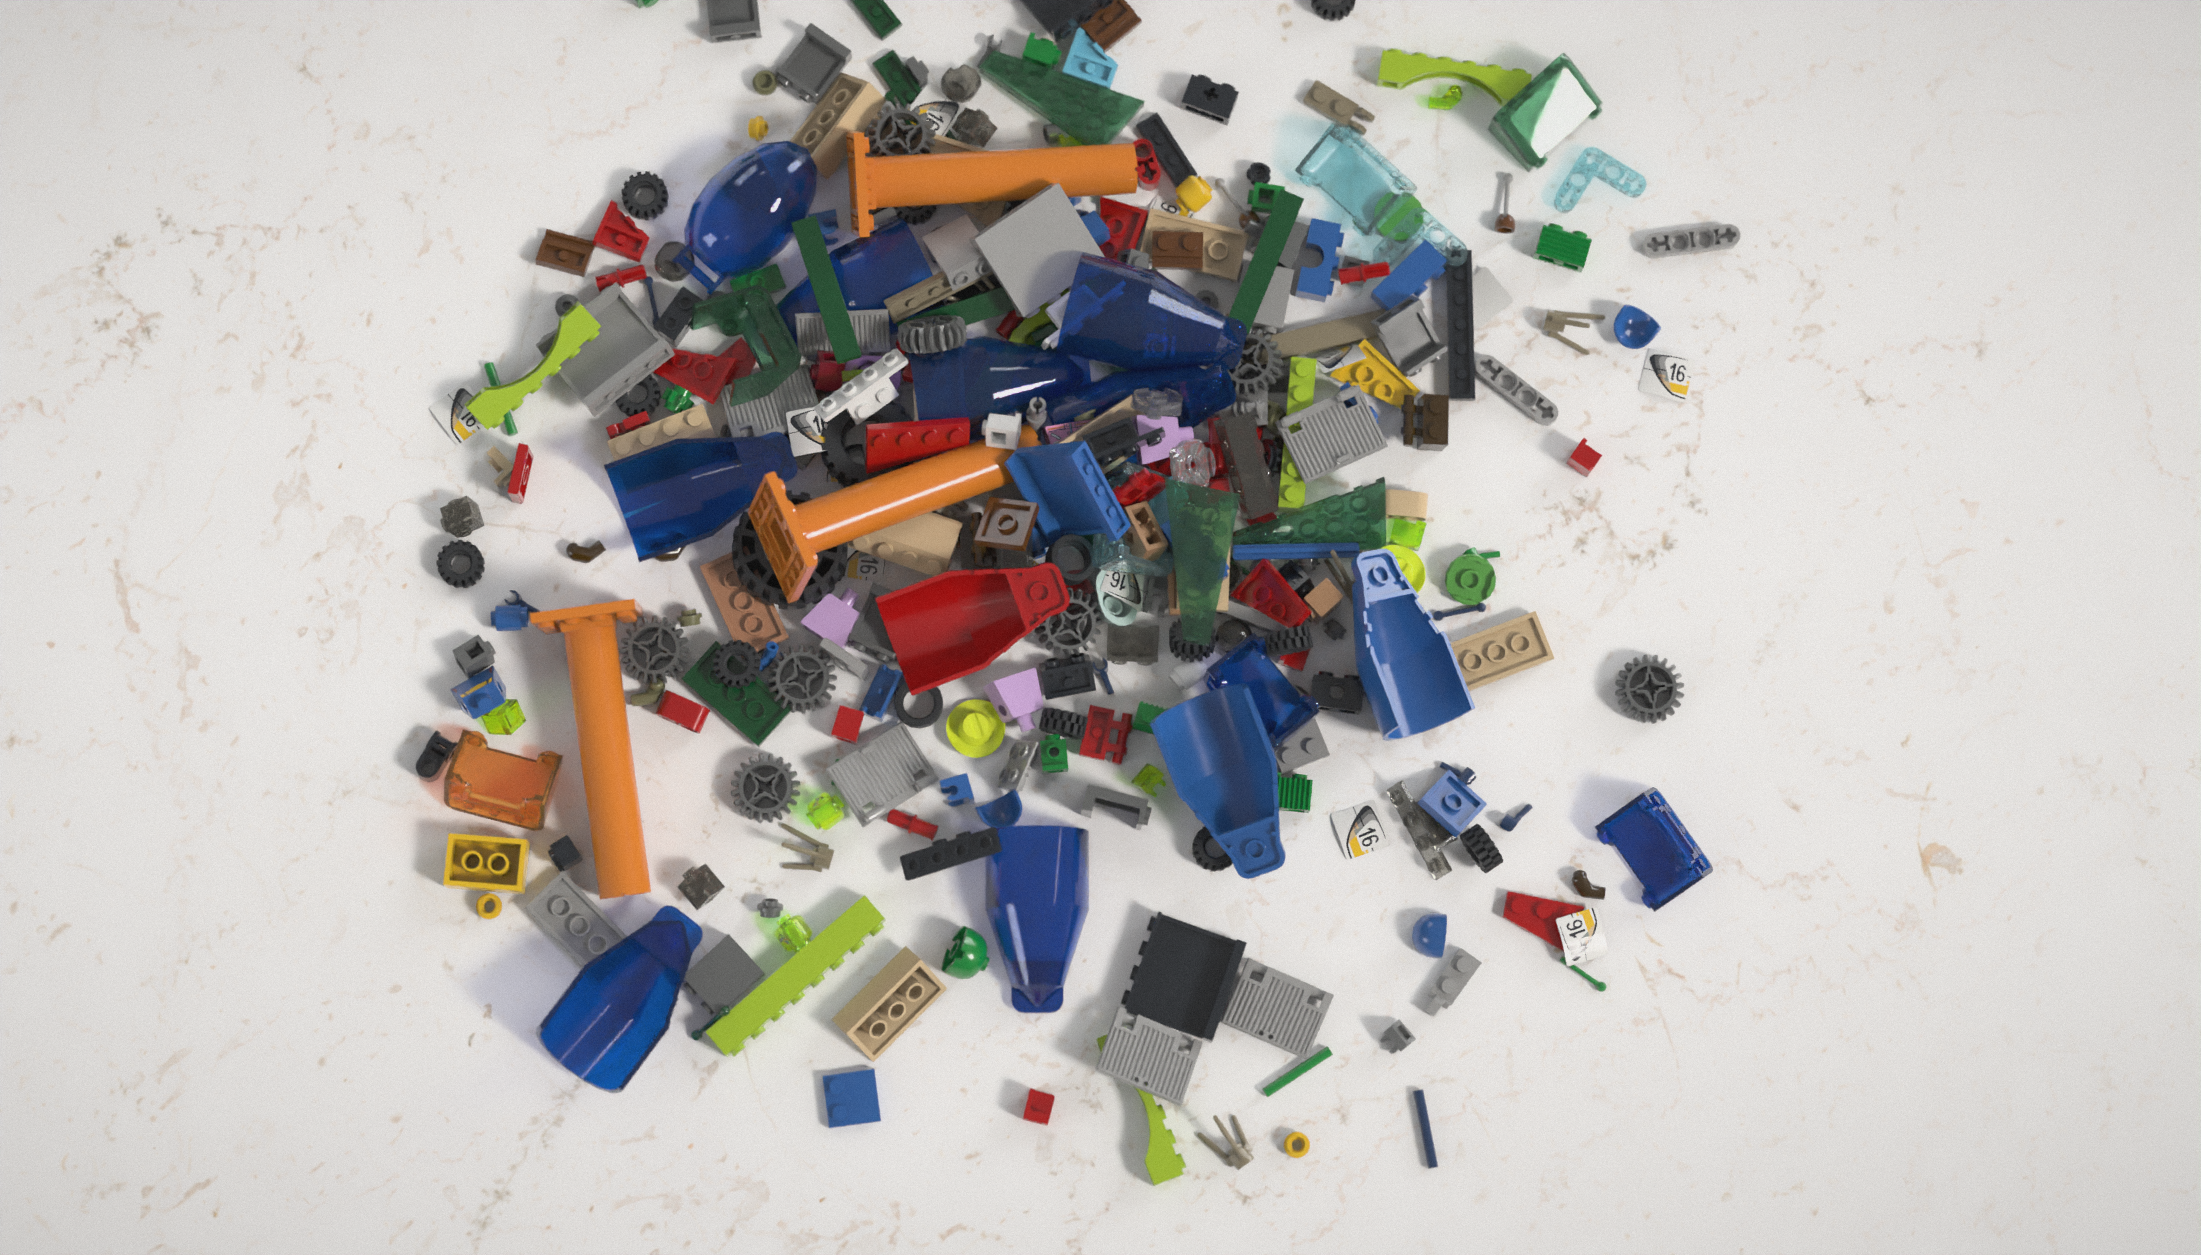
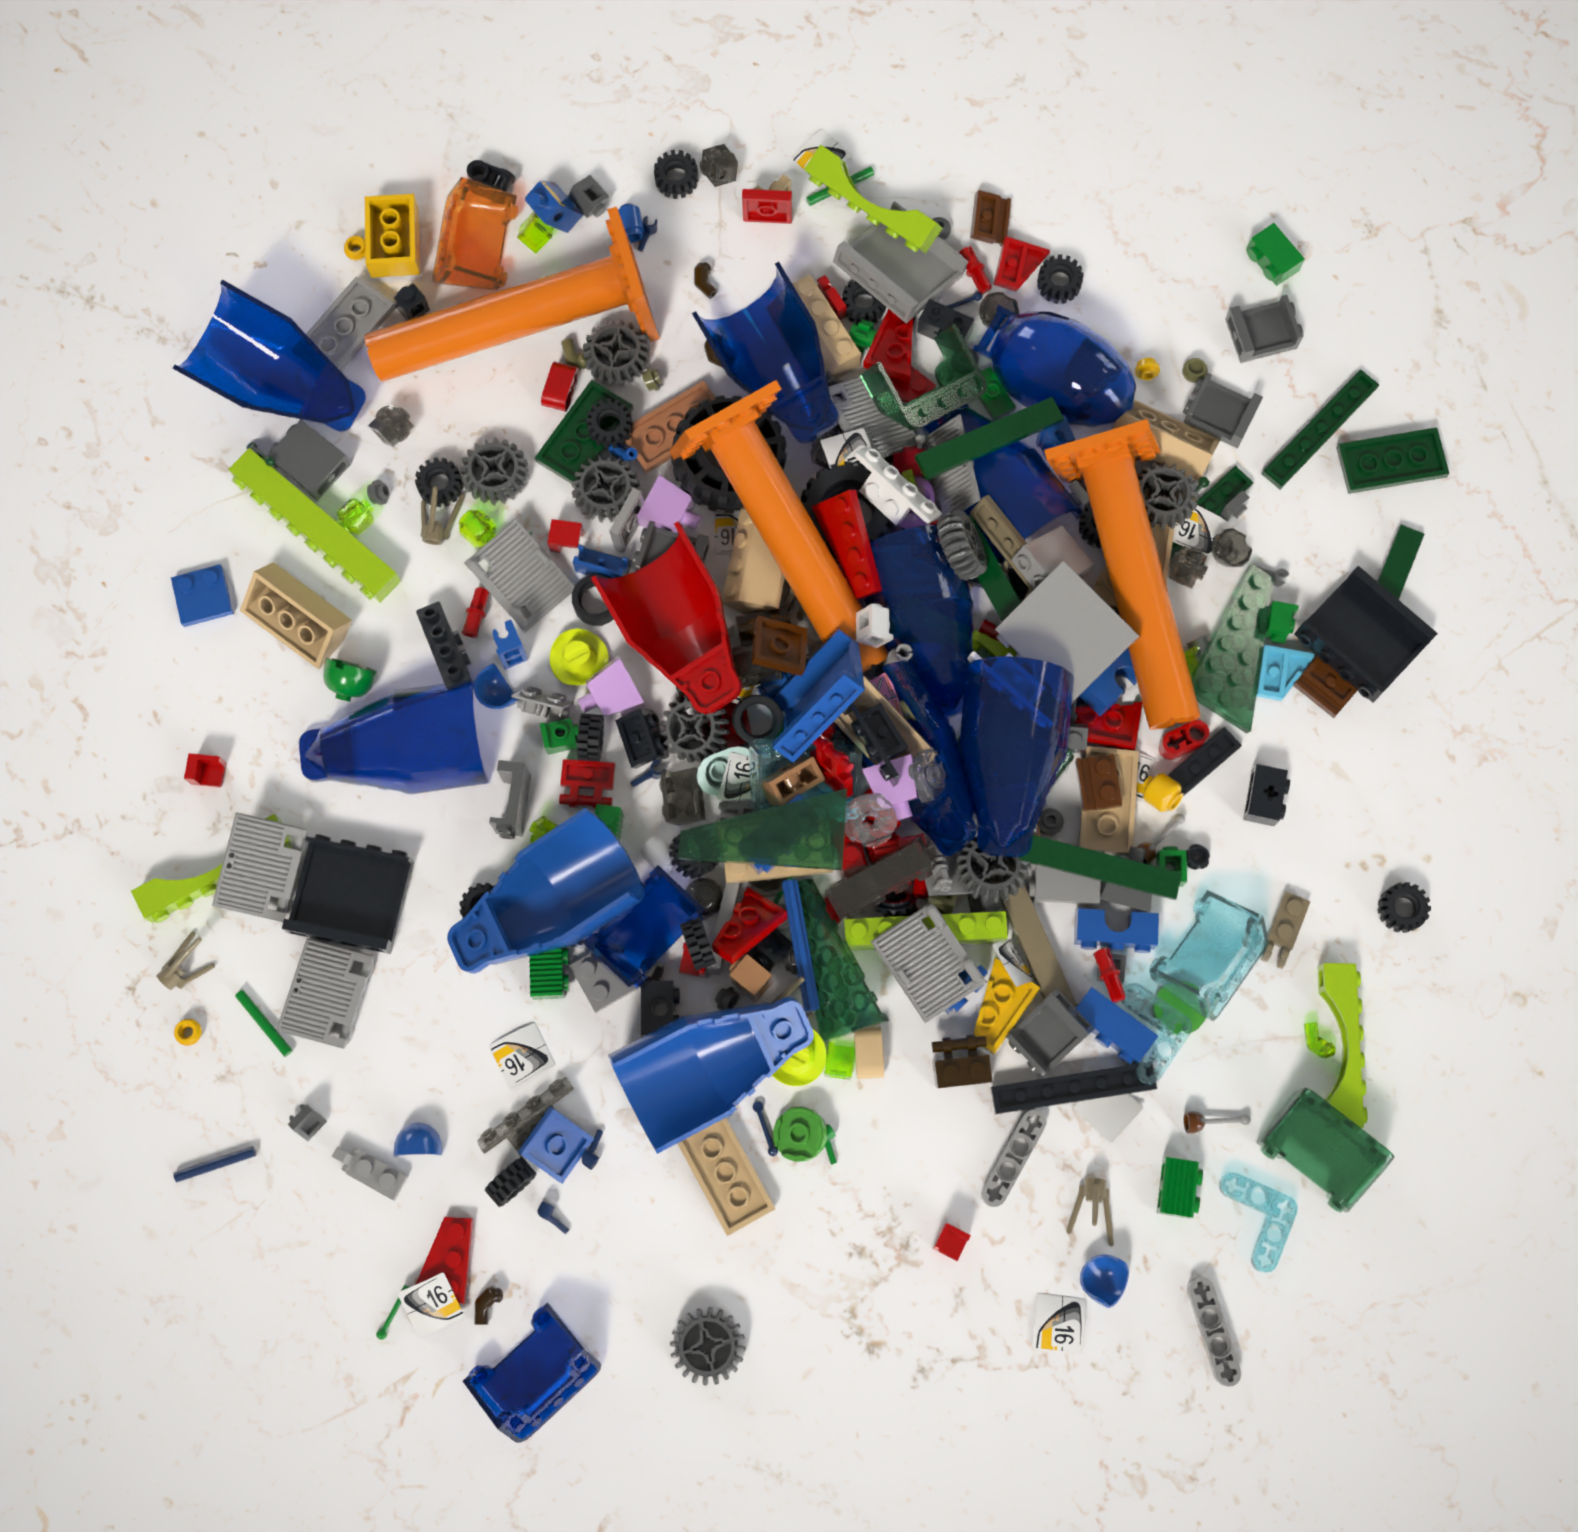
camera: 90 degrees right, 5 degrees down
(753, 838) = (436, 468): none -> black tyre

